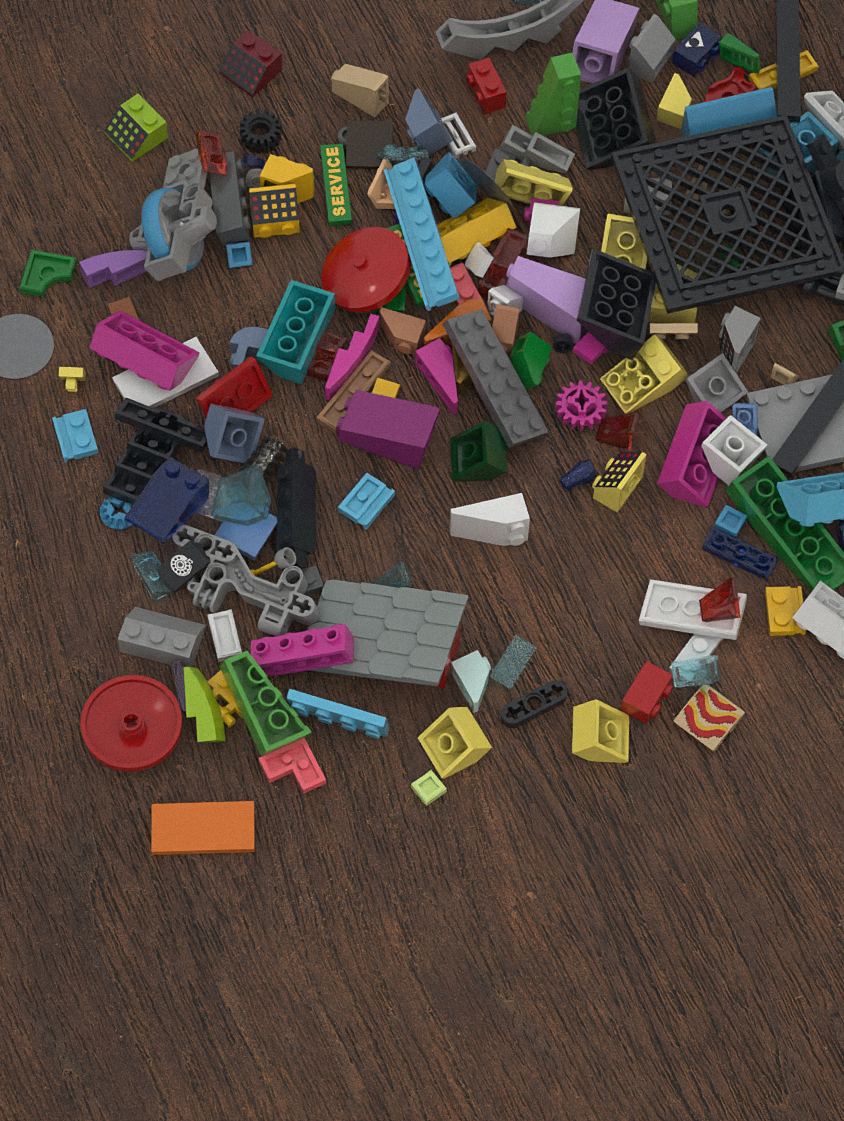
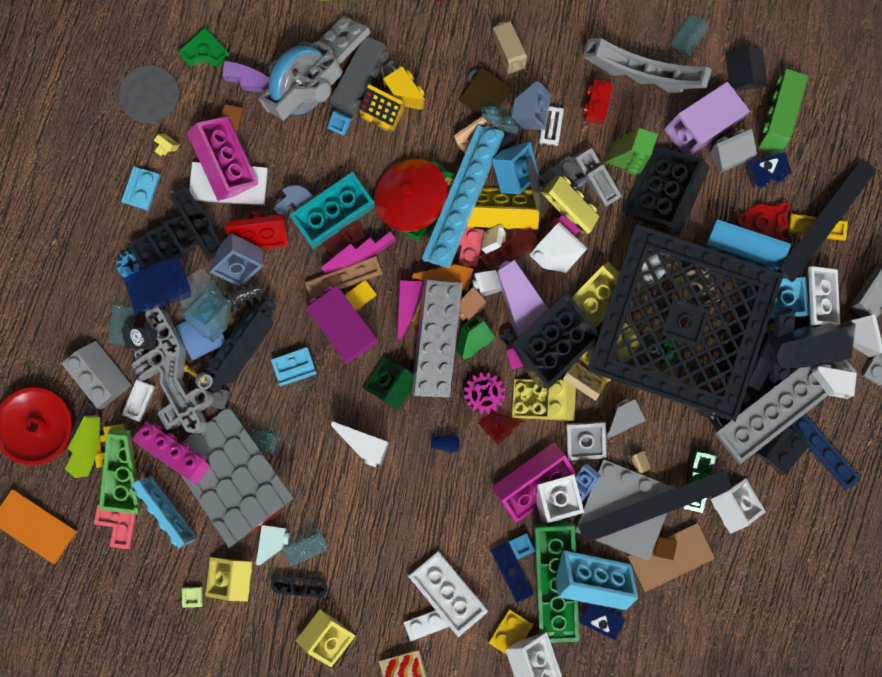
camera: 35 degrees right, 20 degrees up
(210, 153) = (365, 36): clear red slope -> none
(253, 160) = (397, 56): clear blue tile -> none
(260, 120) = (411, 27): black tyre -> none
(335, 184) = (442, 110): green tile -> none
(403, 330) = (406, 257): nougat slope -> none
(620, 479) = (468, 466): light yellow slope -> none
(647, 692) = (374, 632): red brick -> none
(673, 103) = (721, 203): light yellow slope -> none
(696, 671) = (417, 641): clear light blue slope -> none
(721, 602) = (466, 606): clear red slope -> none
(739, 54) = (793, 191): green slope -> none

